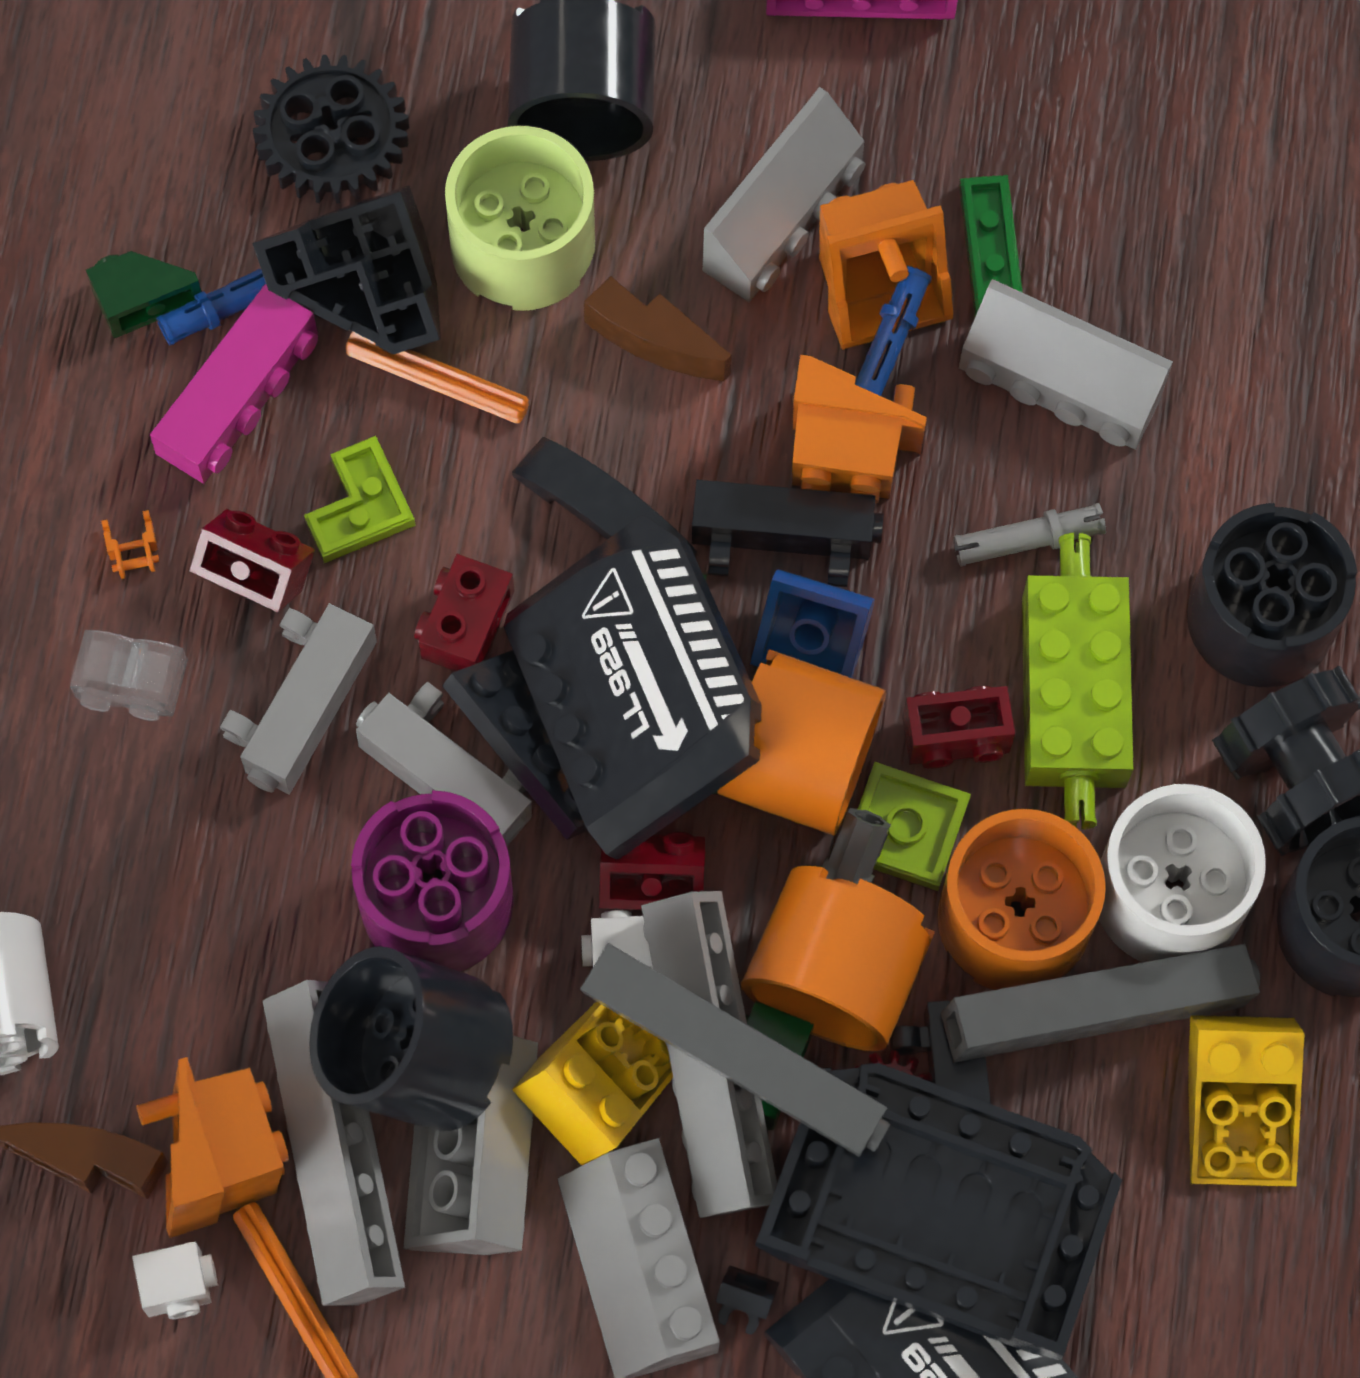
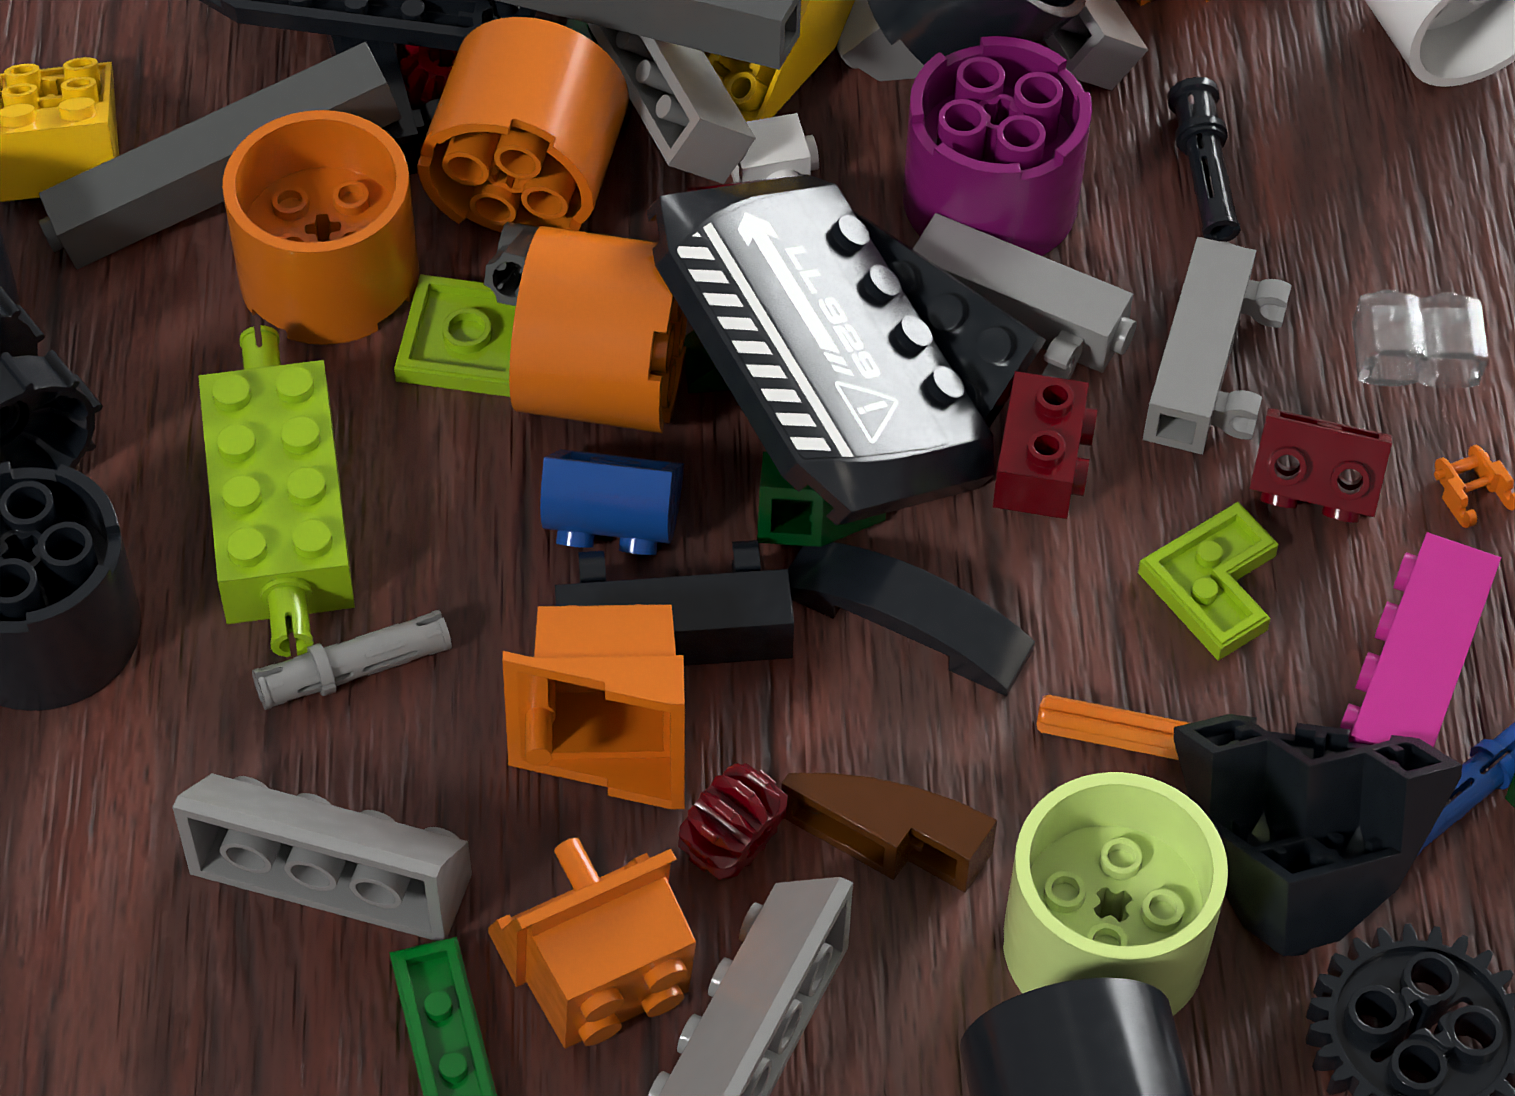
camera: 170 degrees right, 15 degrees down
(240, 913) = (1216, 211): none -> black pin
(770, 339) = (732, 821): none -> dark red gear
(913, 290) = (583, 820): blue pin -> none
(958, 726) = (418, 412): dark red brick -> none
(1188, 837) = (137, 274): white brick -> none

